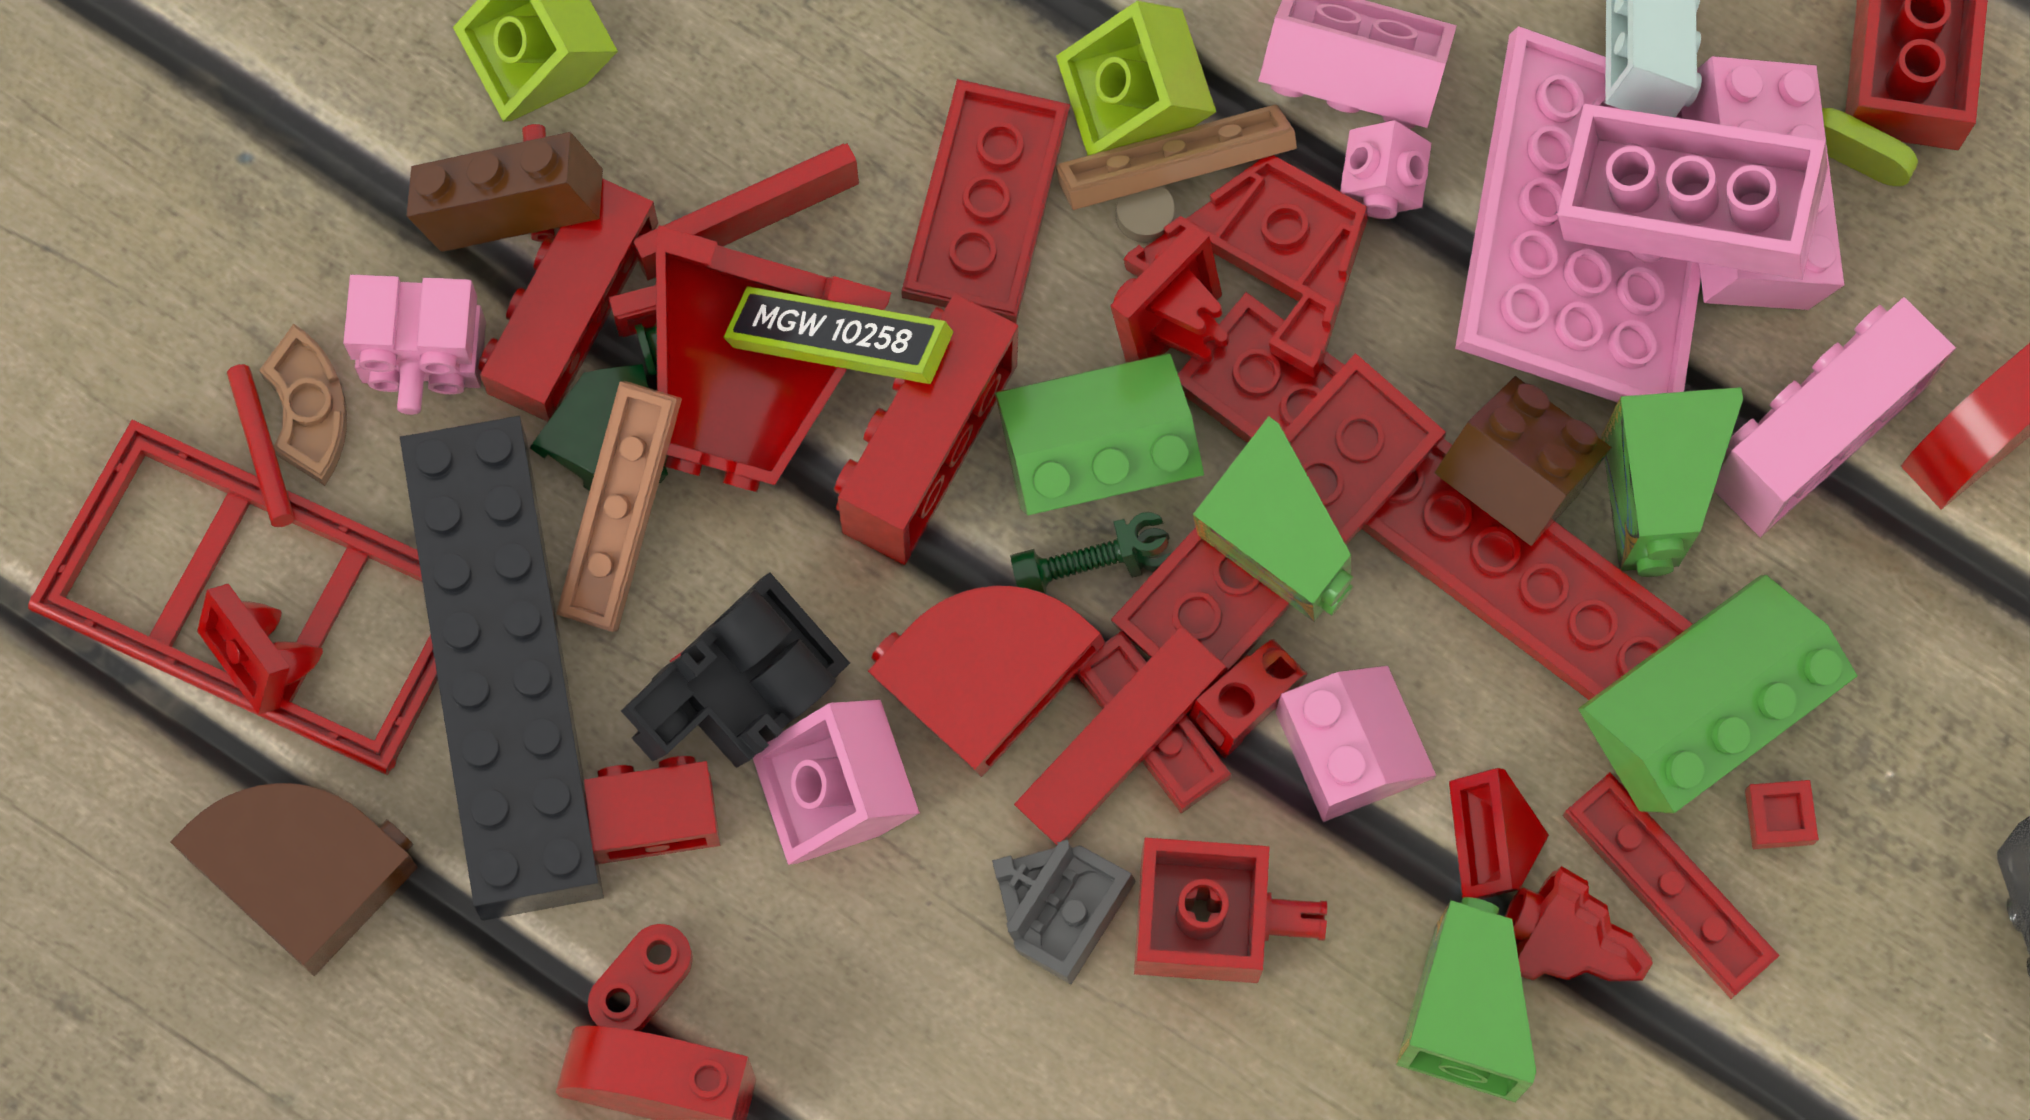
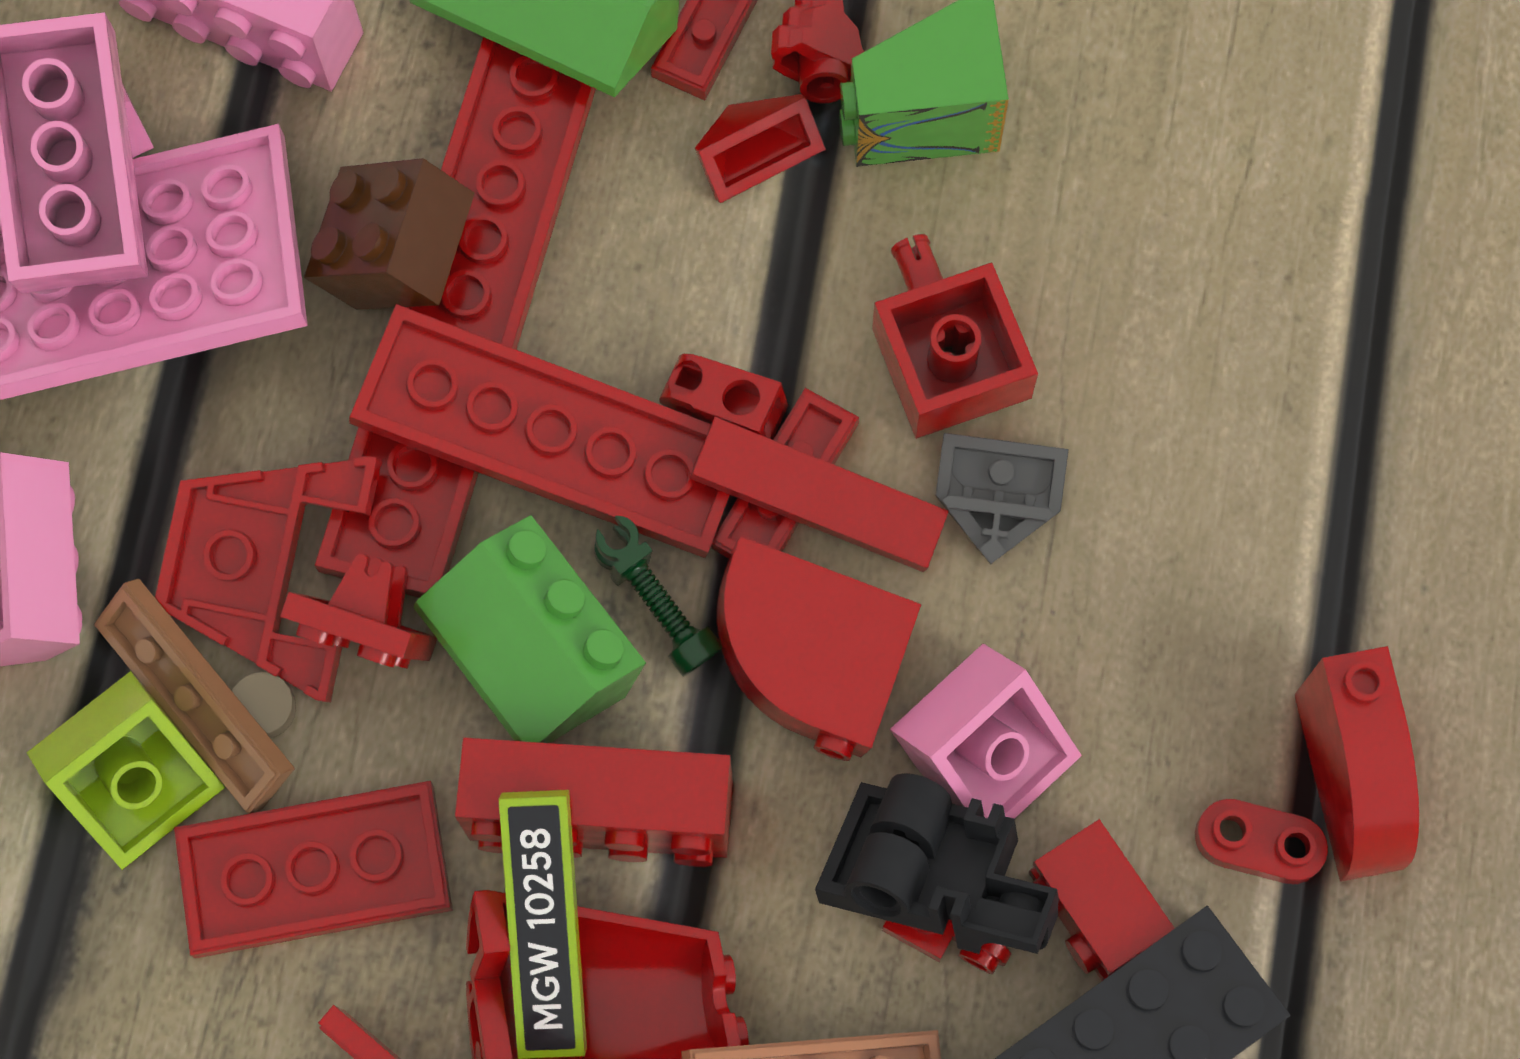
camera: 110 degrees left, 0 degrees up
(1276, 526) = (563, 405): bright green slope -> none
(1353, 739) = (726, 291): bright pink slope -> none
(1386, 168) = (130, 483): bright pink brick -> none
(1665, 472) = (351, 102): bright green slope -> none

